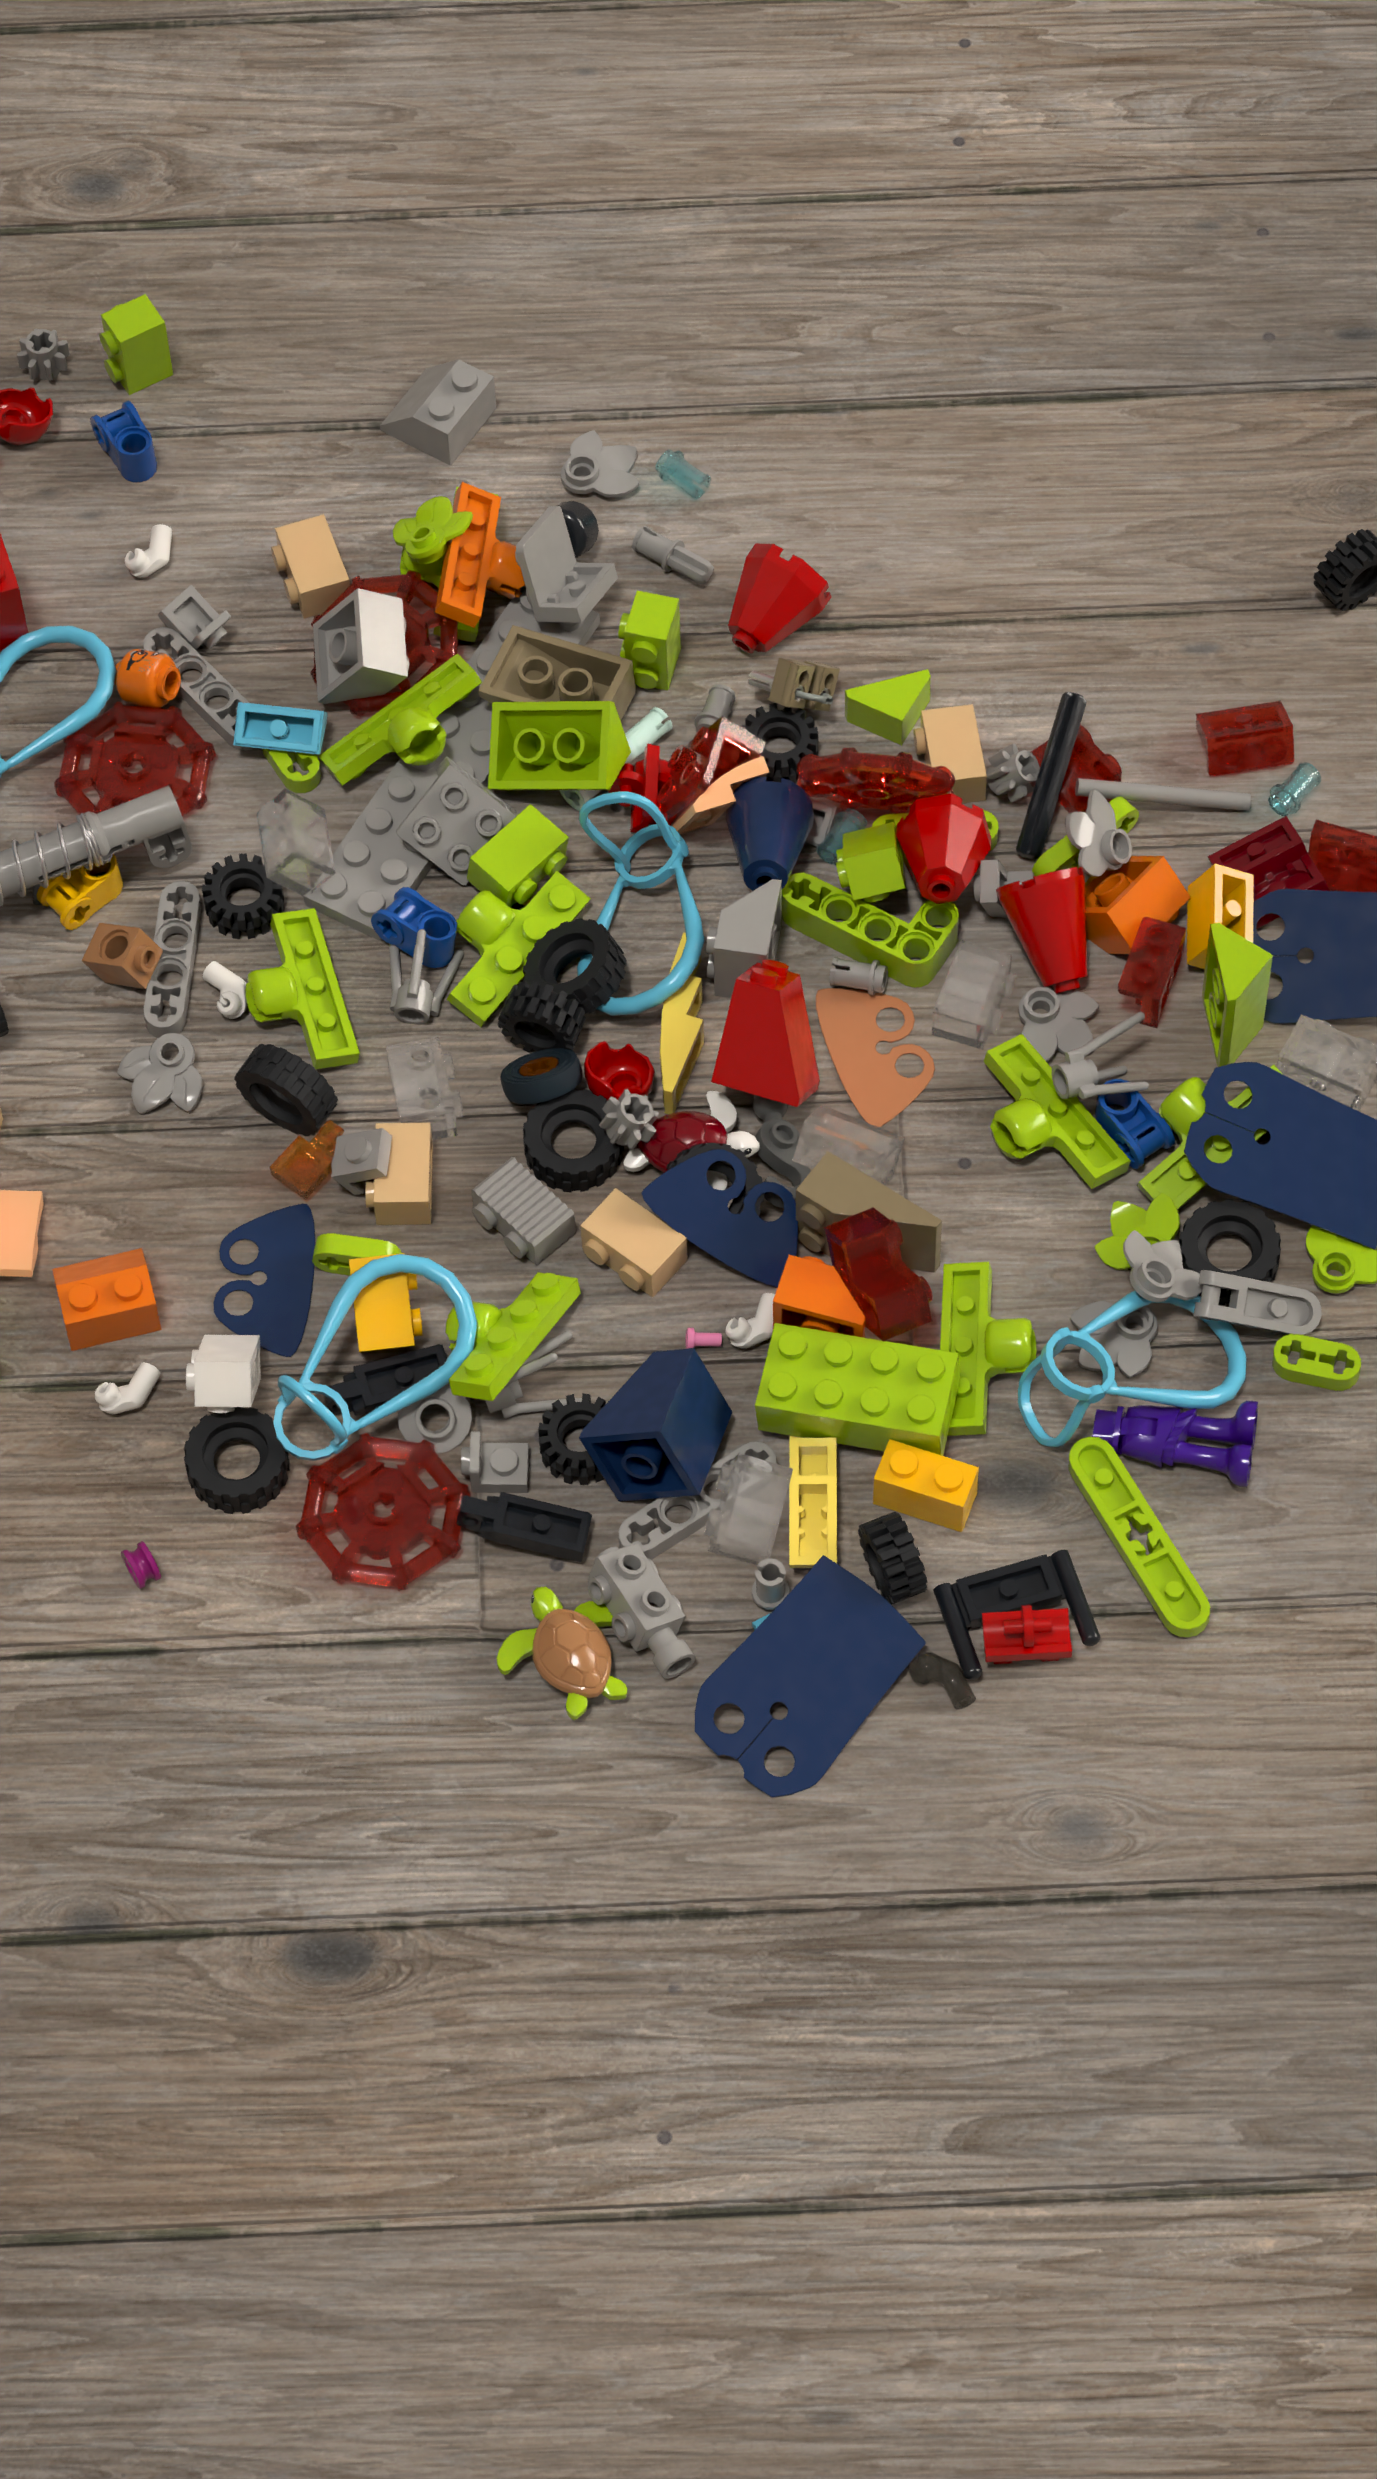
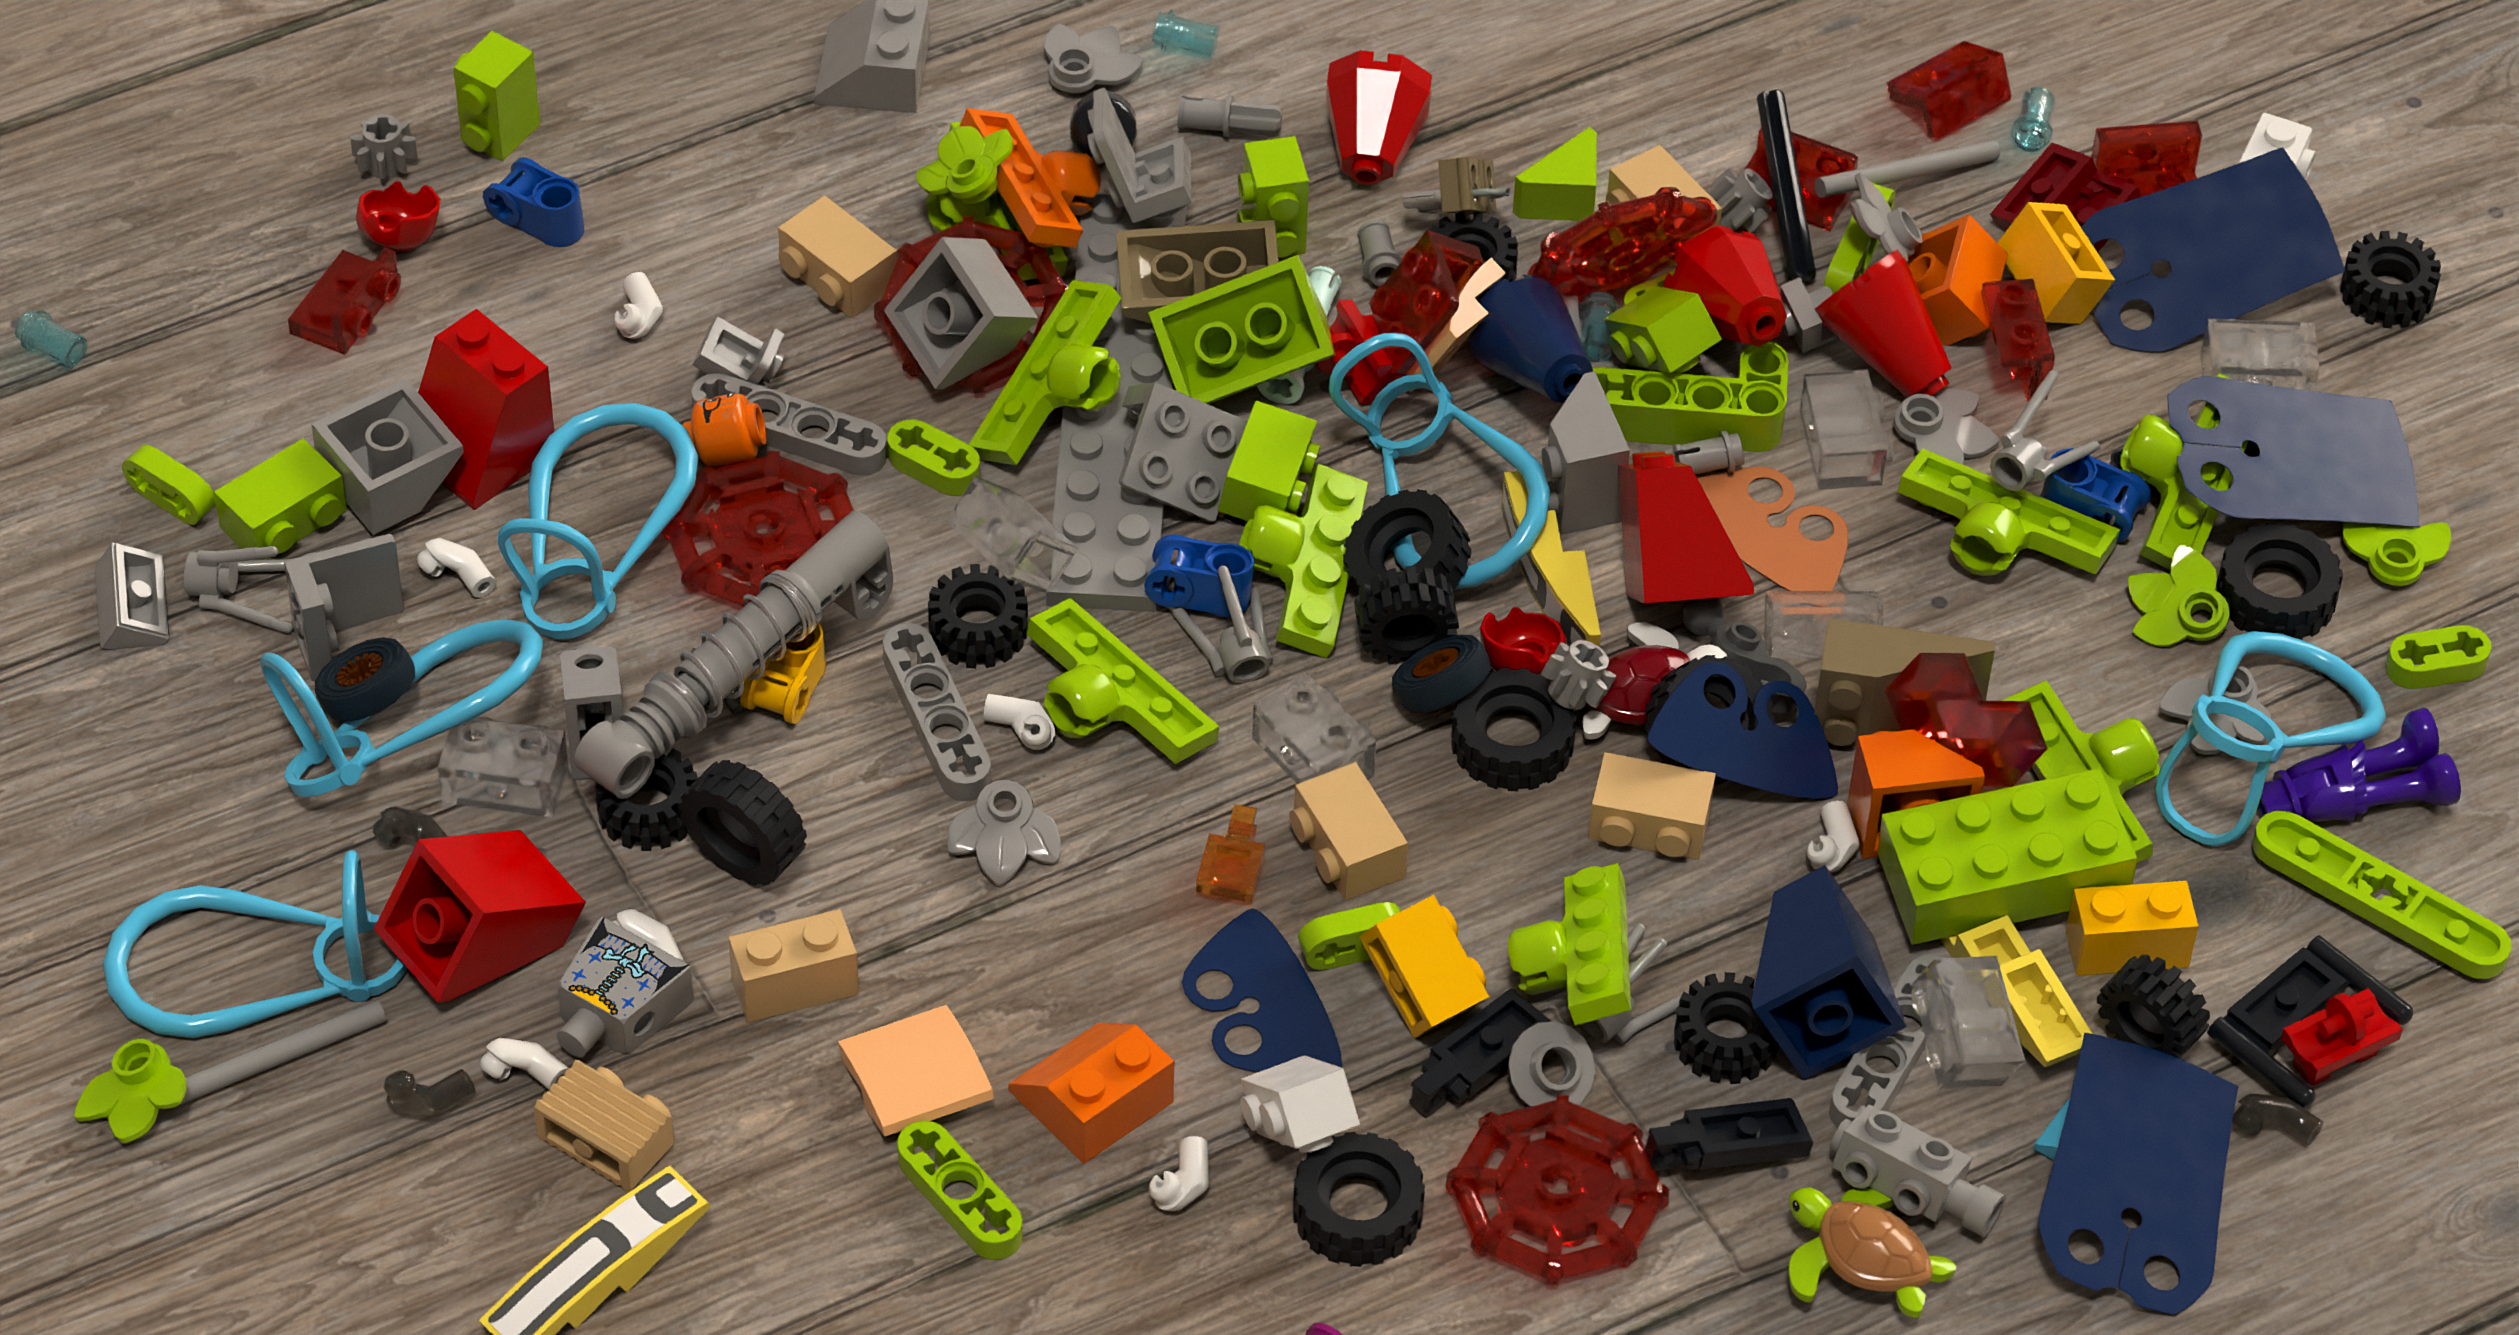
camera: 30 degrees left, 10 degrees down
(122, 955) = (887, 720): medium nougat brick -> none
(280, 728) = (912, 427): medium azure slope -> none
(286, 1089) = (1175, 760): black tyre -> none
(340, 1306) = (1495, 1096): medium azure animal -> none
(361, 1158) = (1302, 827): light grey bracket -> none
(495, 1466) = (1651, 1092): light grey bracket -> none
(523, 1212) = (1509, 819): light grey brick -> none
(702, 1339) = (1775, 880): bright pink piece -> none
(770, 1584) = (2035, 1098): light grey pin -> none
(1159, 1270) = (2239, 621): light grey plate -> none
(1234, 991) = (2124, 318): lime slope -> none
(1258, 1304) = (2350, 616): light grey plate -> none

